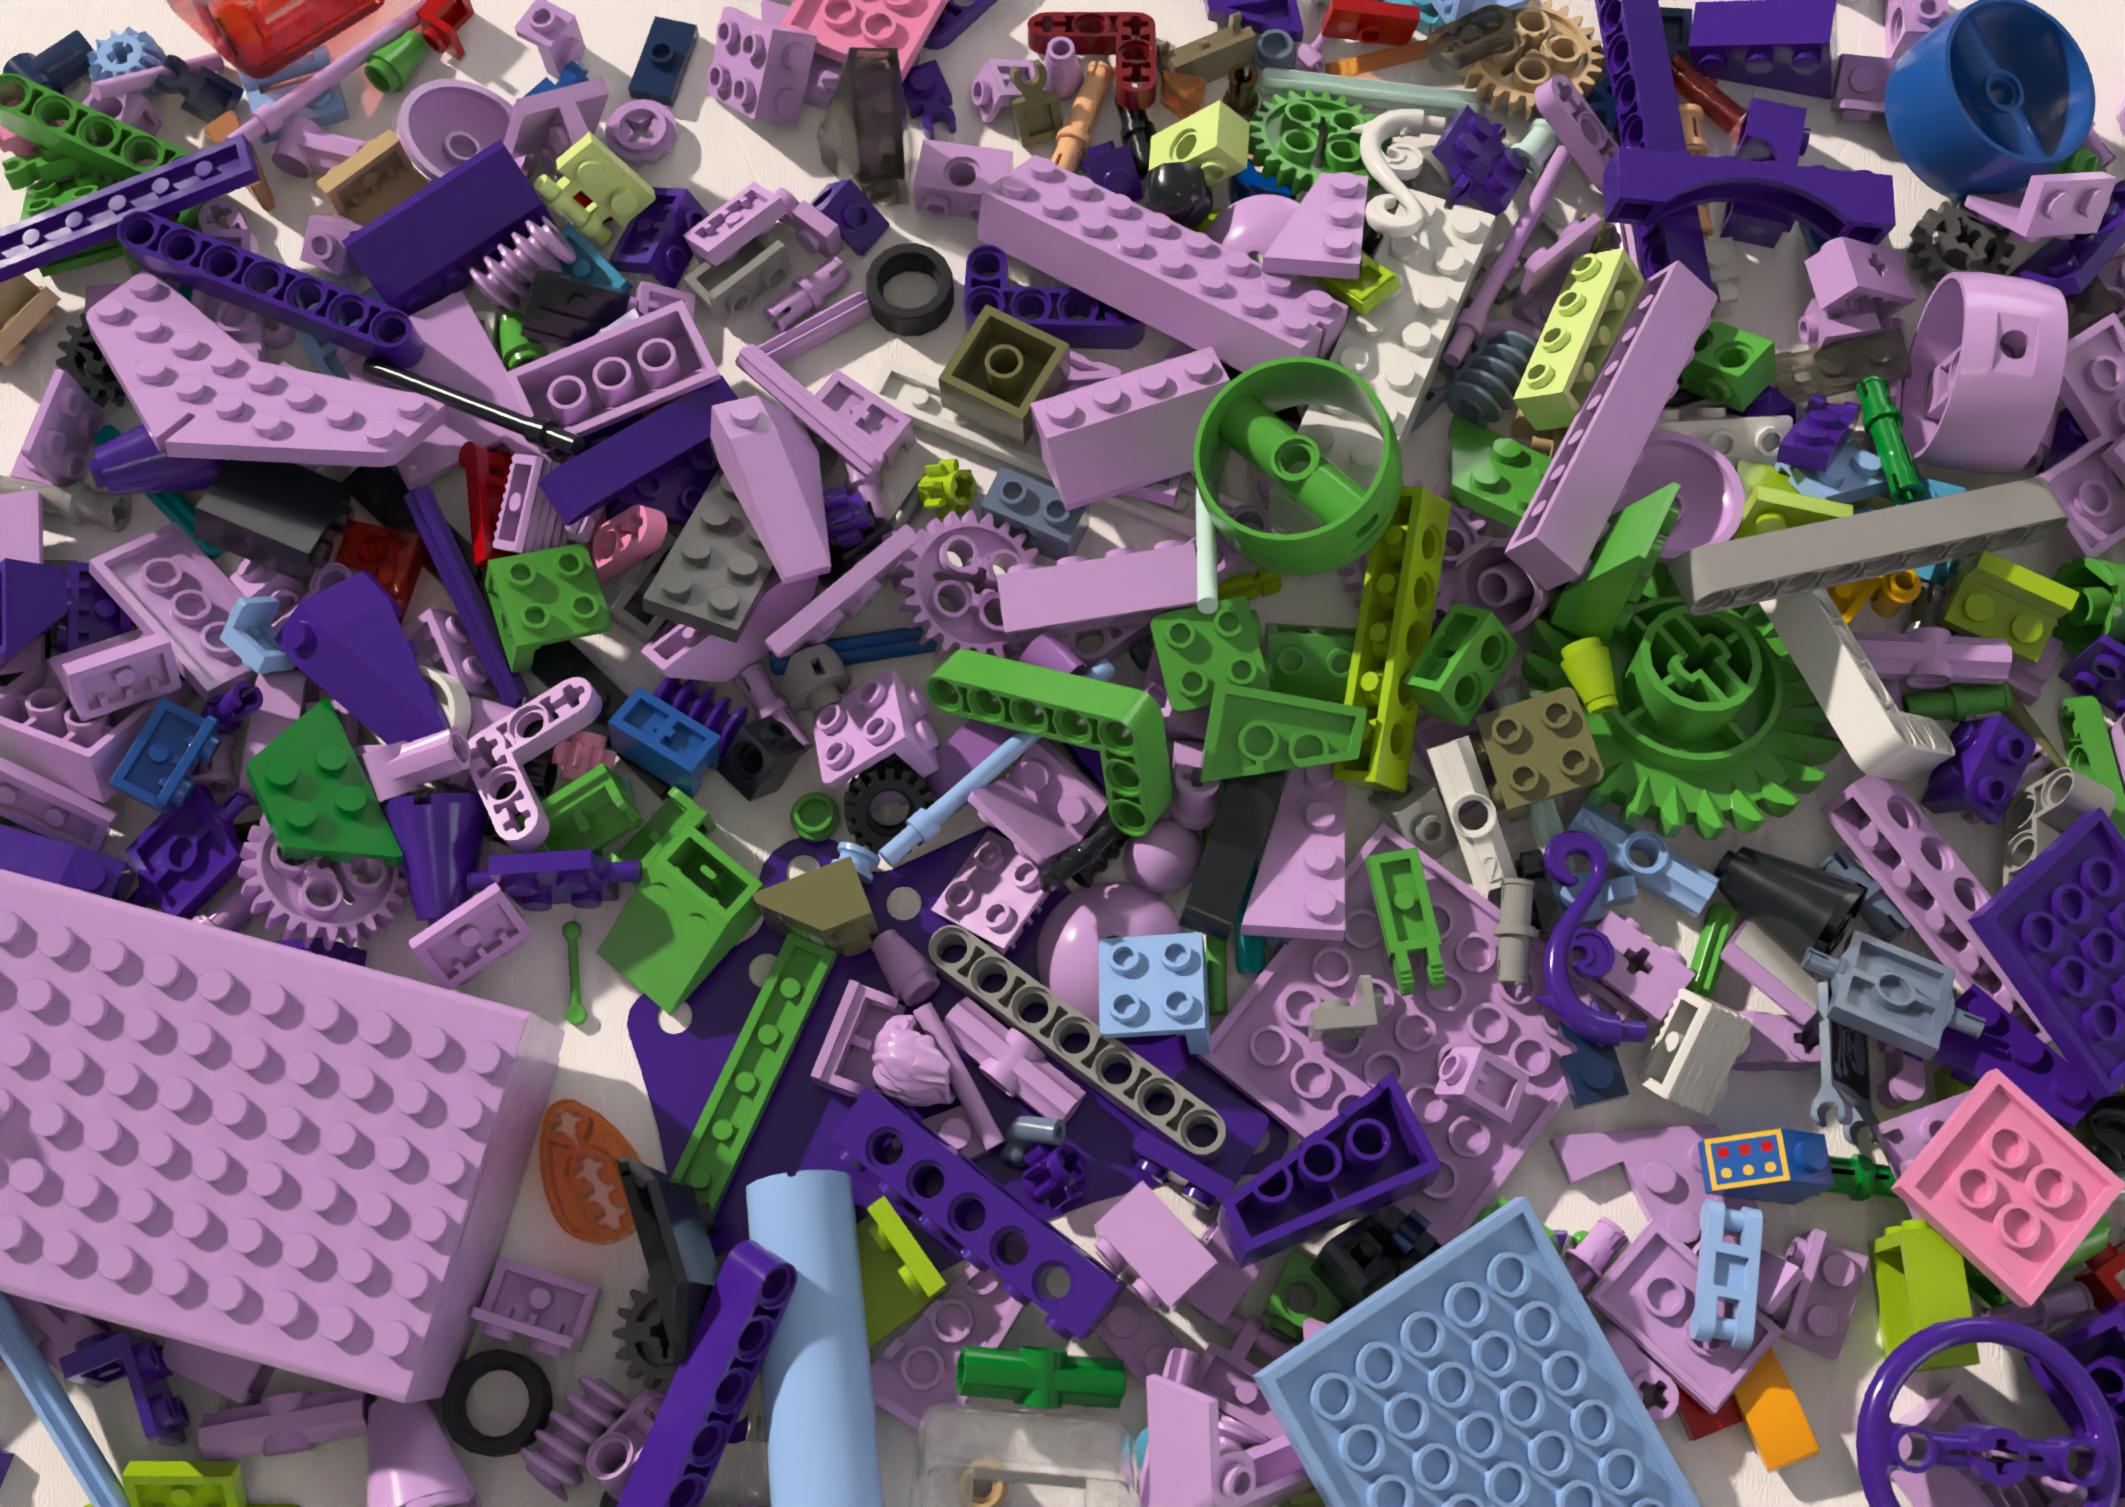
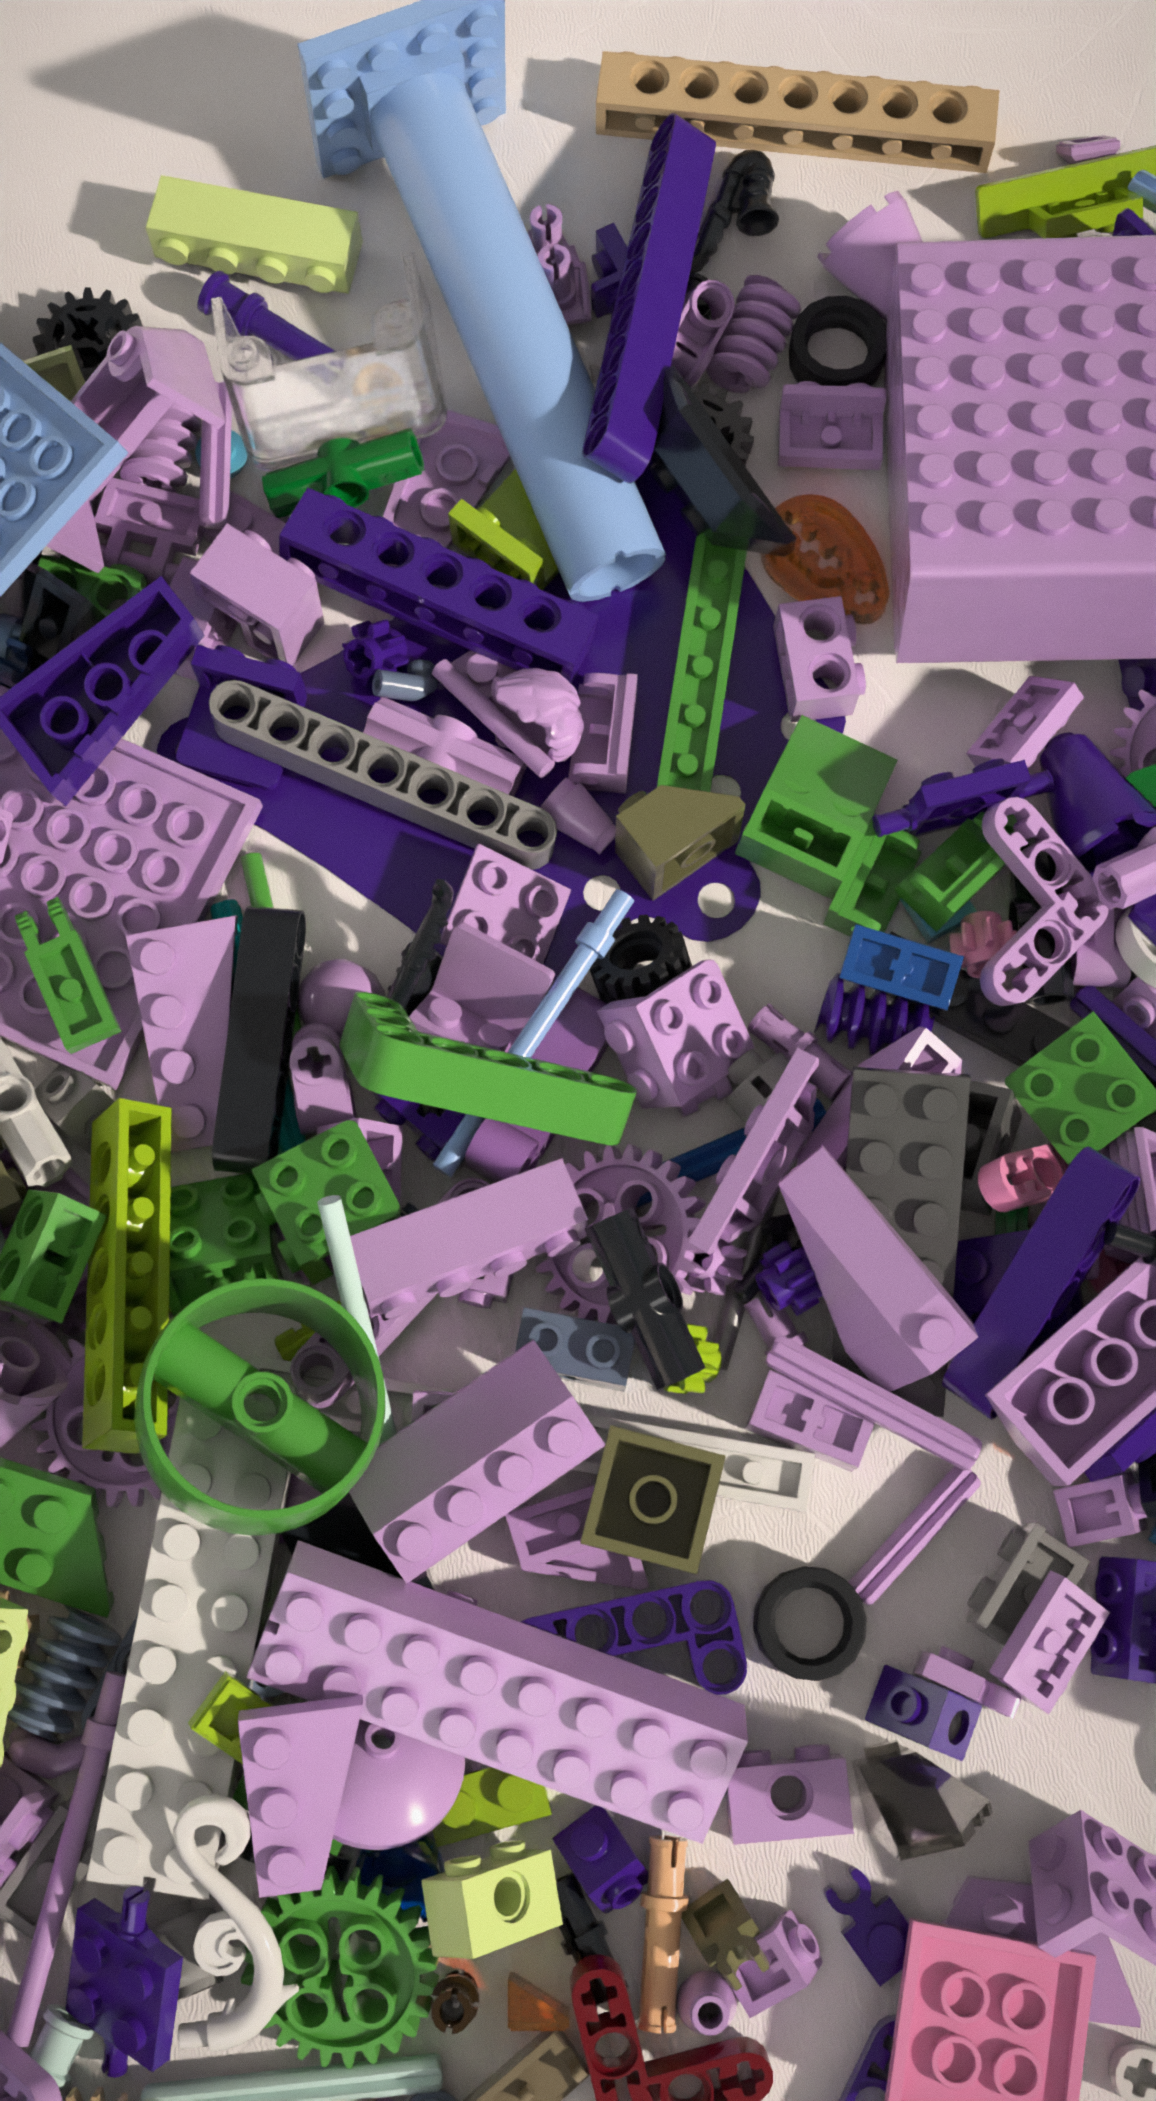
camera: 165 degrees right, 5 degrees up
(576, 1013) = (896, 704): bright green hinge -> none
(650, 1062) = (807, 659): none -> lavender brick
(760, 758) = (794, 986): black brick -> none
(806, 294) = (933, 1584): lavender pin -> none
(815, 817) = (724, 947): bright green plate -> none
(862, 859) = (662, 903): light blue bush -> none
(967, 512) = (645, 1298): none -> black piece
(1076, 925) = (371, 919): lavender dish -> none
(1155, 988) = (312, 831): light blue bracket -> none
(1178, 192) = (502, 1813): black hair -> none
(1274, 731) = (242, 1121): bright green wing -> none
(1339, 1020) = (110, 851): light grey bracket -> none

